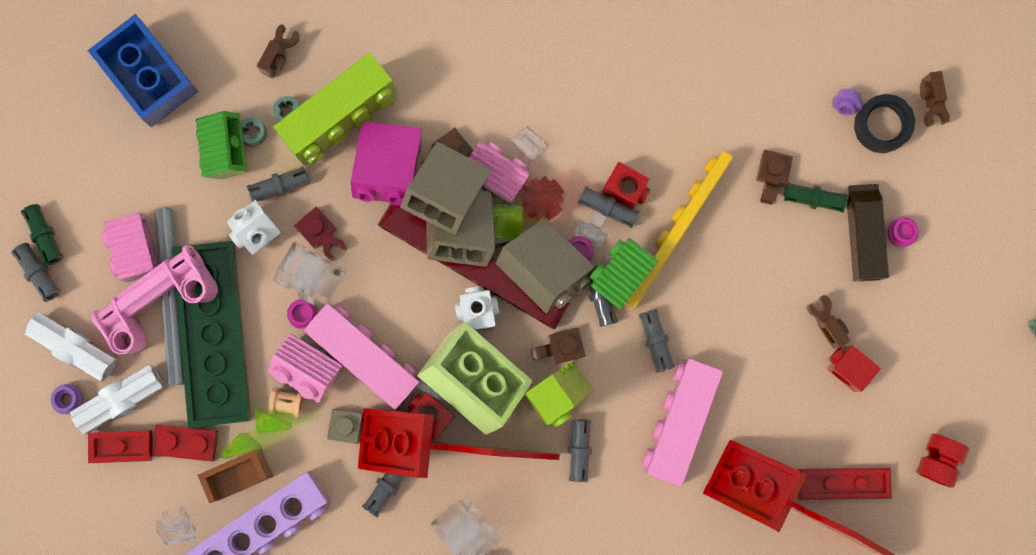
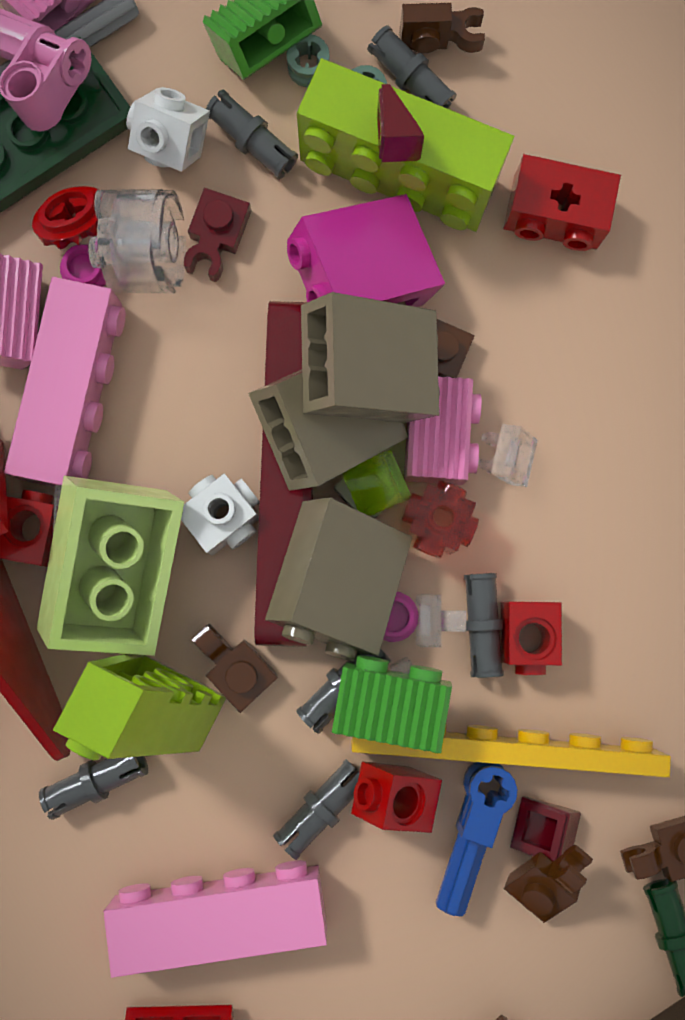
camera: 60 degrees right, 0 degrees up
(264, 315) = (54, 218): none -> red gear
(291, 80) = (409, 69): none -> dark grey pin
(336, 111) = (398, 132): none -> dark red slope
(411, 28) = (585, 196): none -> red brick
(670, 298) = (396, 797): none -> red brick
(708, 267) = (477, 830): none -> blue connector
(729, 233) = (544, 828): none -> dark red slope
(755, 246) = (547, 885): none -> reddish brown plate

